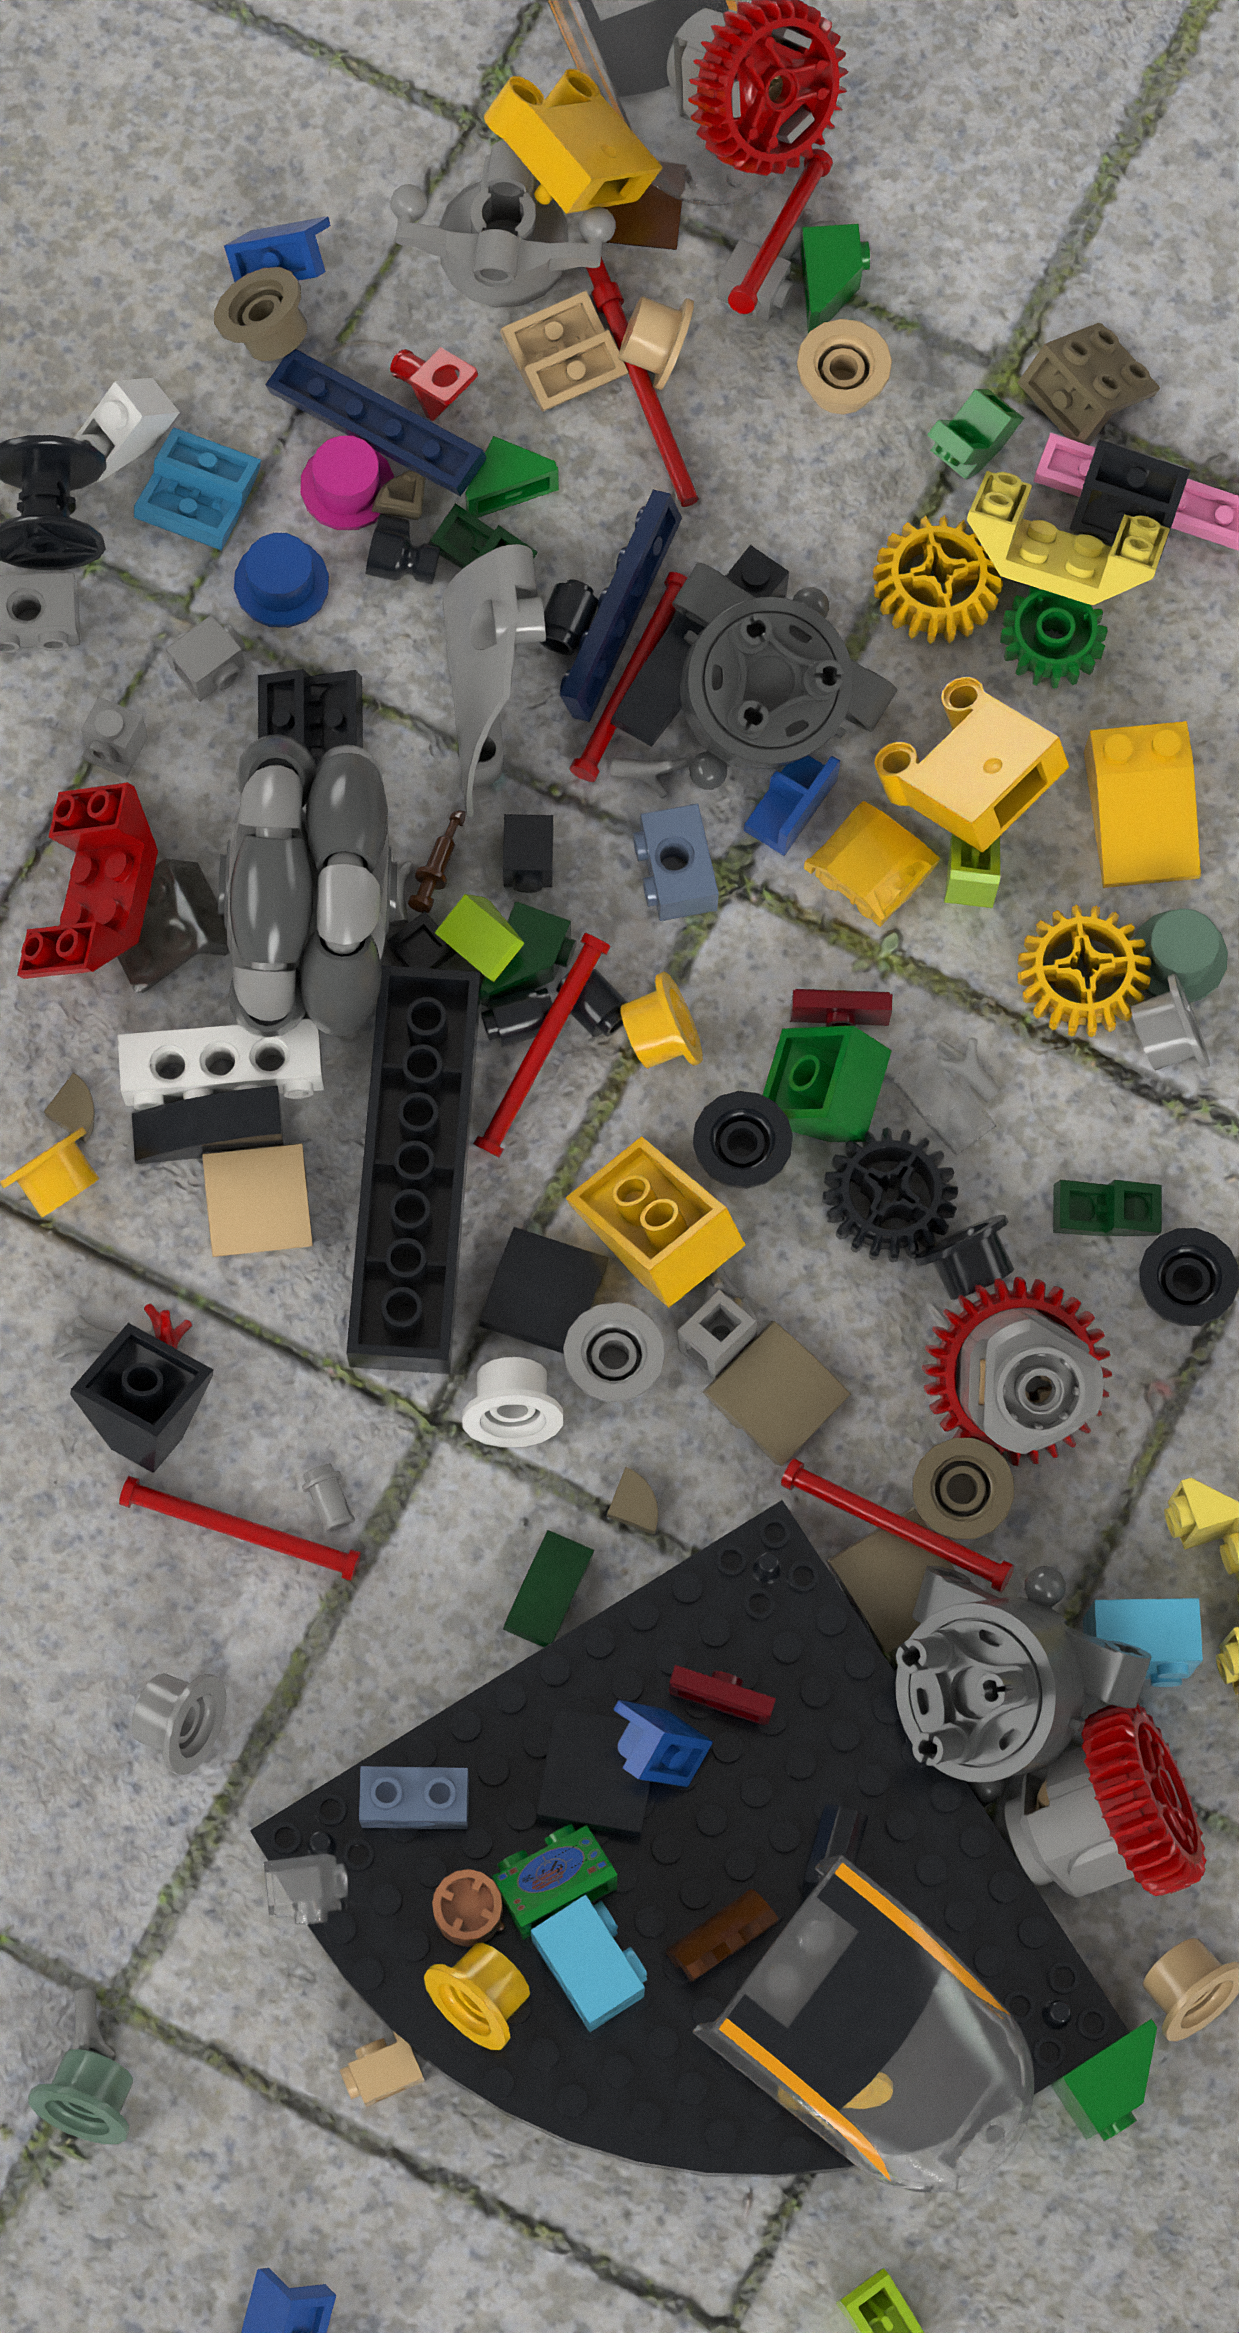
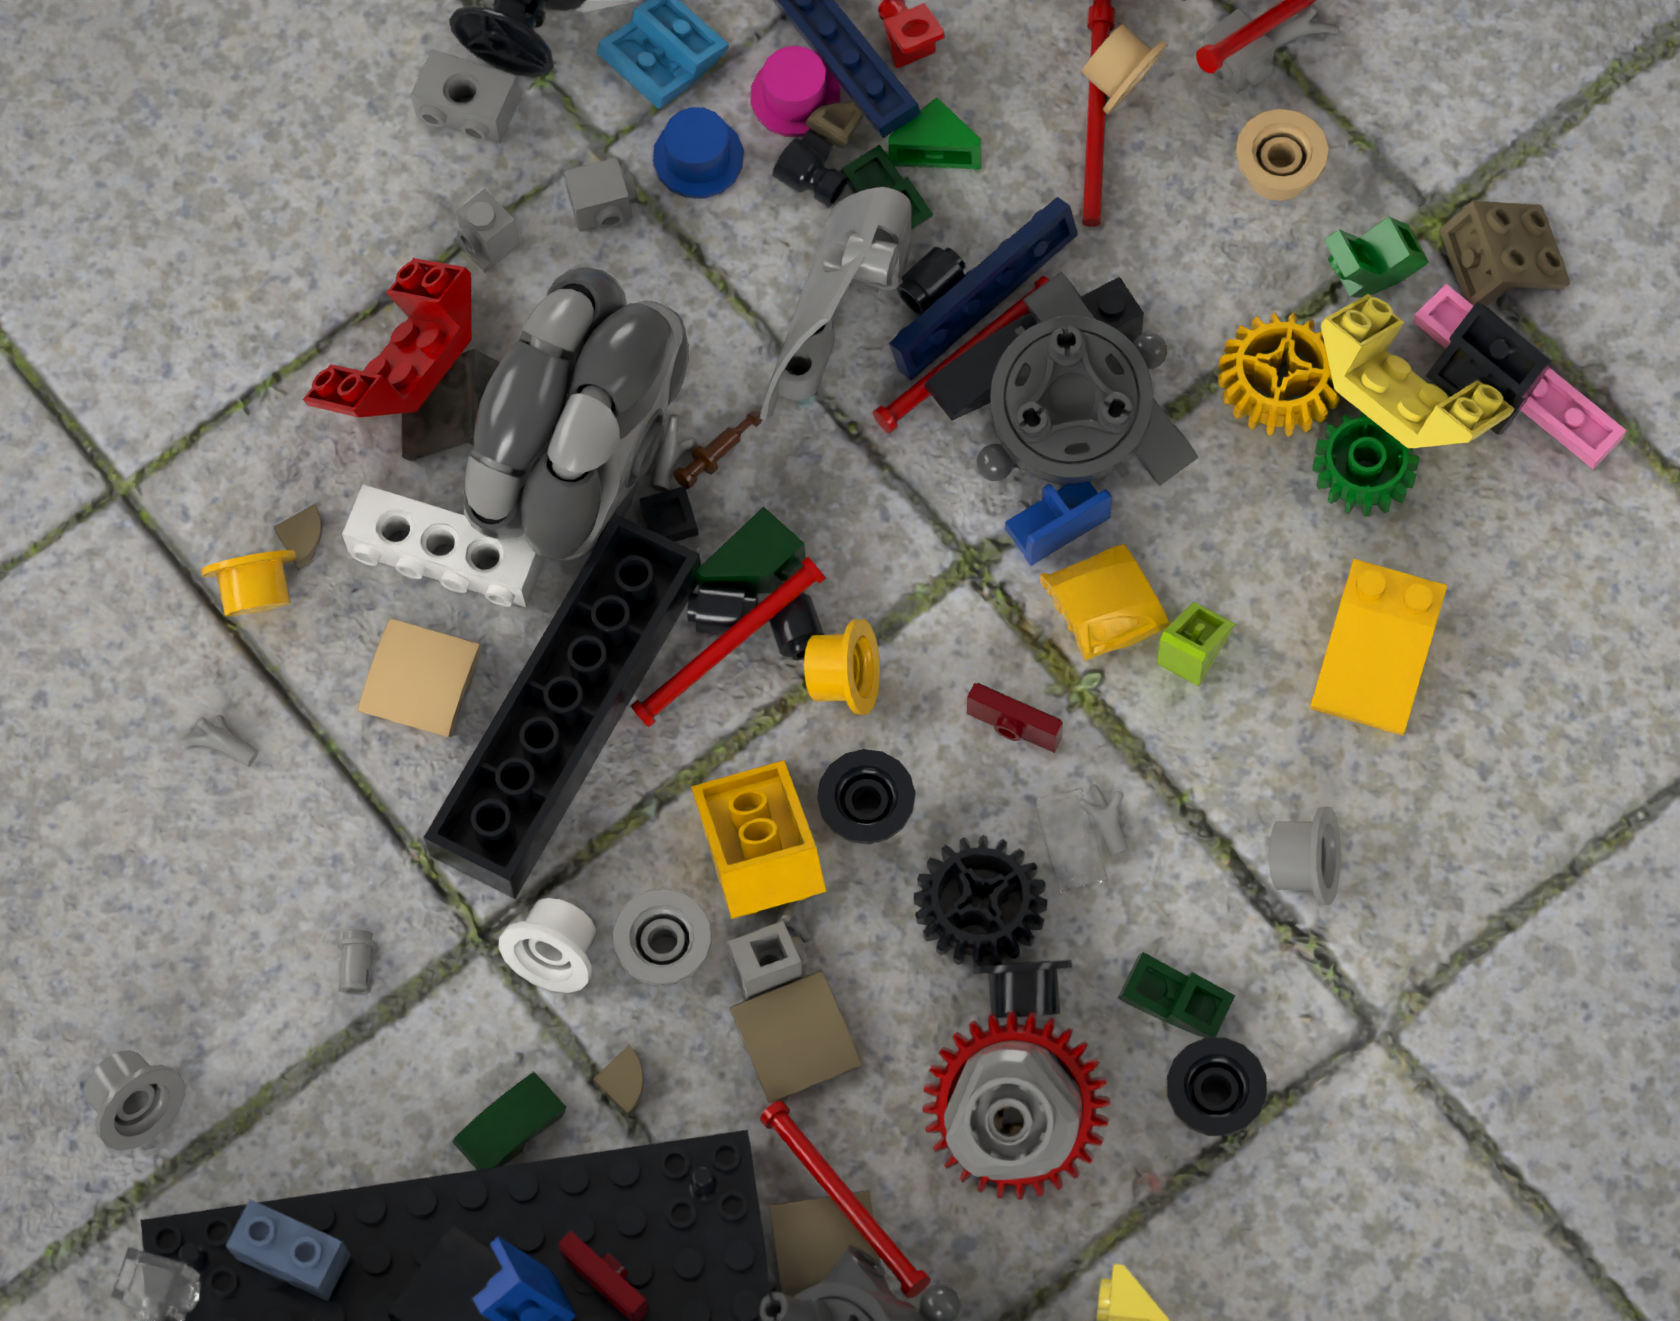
camera: 30 degrees right, 5 degrees down
(141, 1395) = (235, 804): black slope -> none
(163, 1326) = (283, 769): red bar -> none
(208, 1125) = (409, 596): black slope -> none
(239, 1528) = (343, 1025): red bar -> none
(312, 709) = (672, 274): black slope -> none
(480, 935) = (715, 520): lime slope -> none
(528, 852) = (799, 470): black brick -> none
(541, 1289) = (629, 855): black slope -> none
(563, 351) = (1039, 50): tan slope -> none
(647, 770) = (941, 442): light grey bar -> none
(682, 835) = (929, 558): sand blue brick -> none
(827, 1081) = (971, 778): green slope -> none
(831, 269) = (1313, 66): green slope -> none
(963, 1488) = (917, 1190): dark tan piece -> none
(978, 773) = (1235, 555): yellow piece -> none
(1066, 975) = (1232, 765): yellow gear -> none
(1187, 946) = (1358, 792): sand green piece -> none

